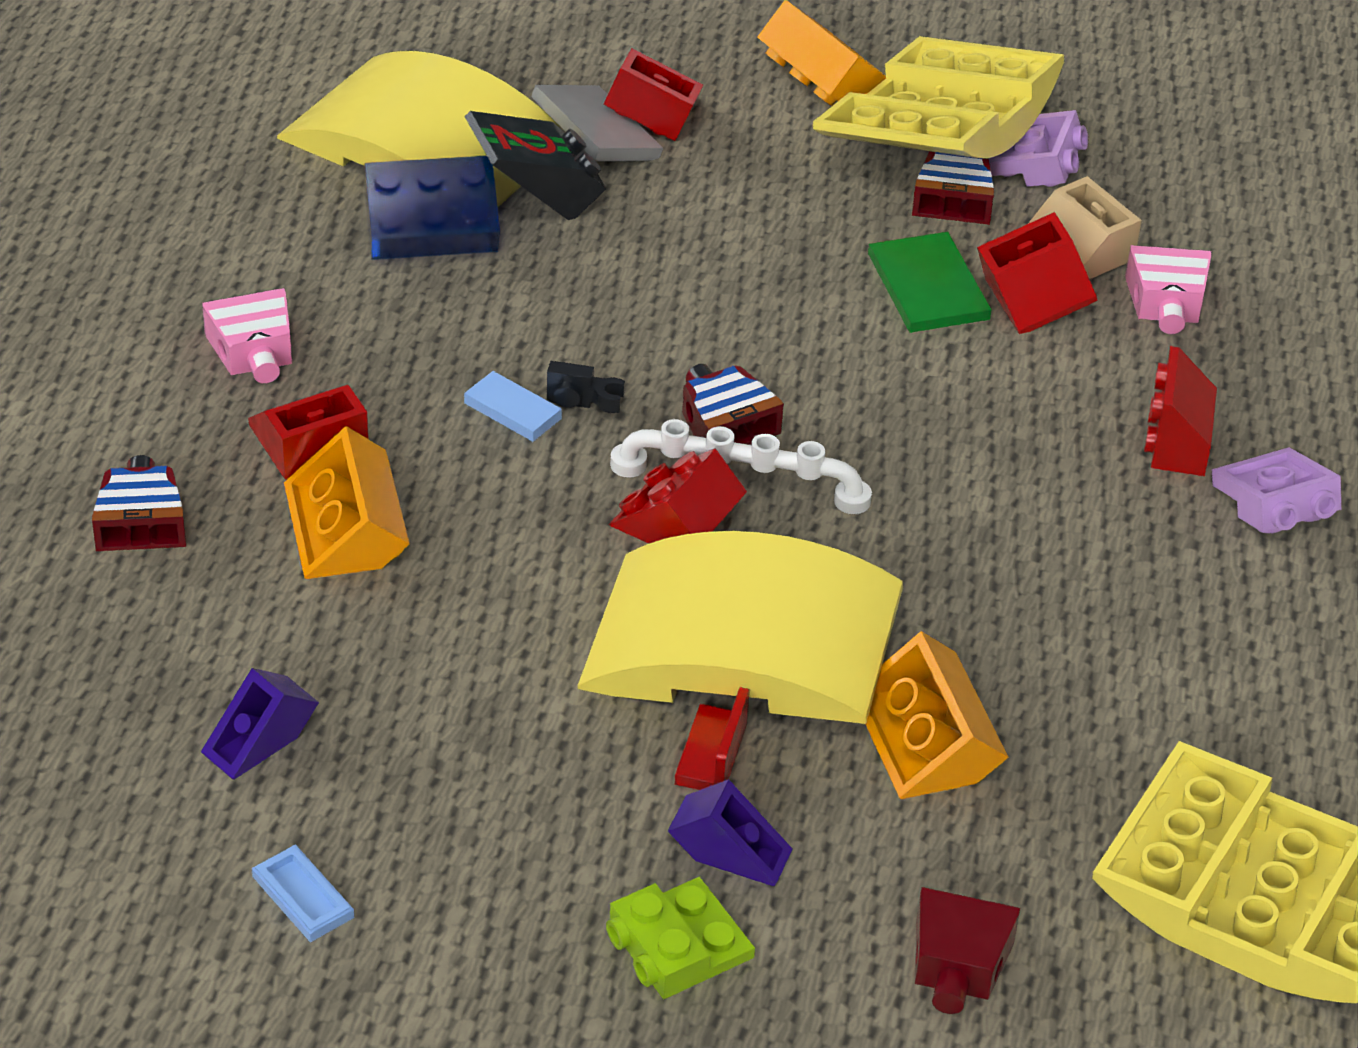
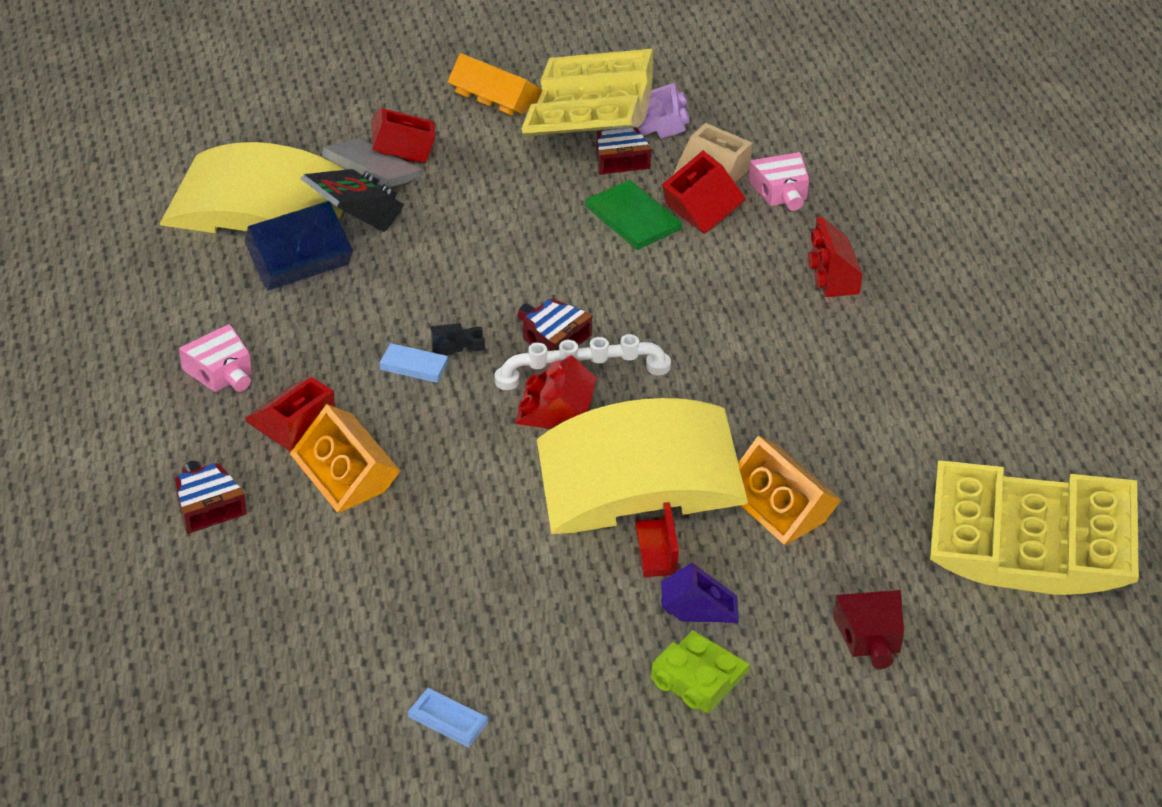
camera: 20 degrees left, 0 degrees up
(258, 722) = (363, 616): dark purple slope -> none
(1280, 490) = (911, 290): lavender plate -> none

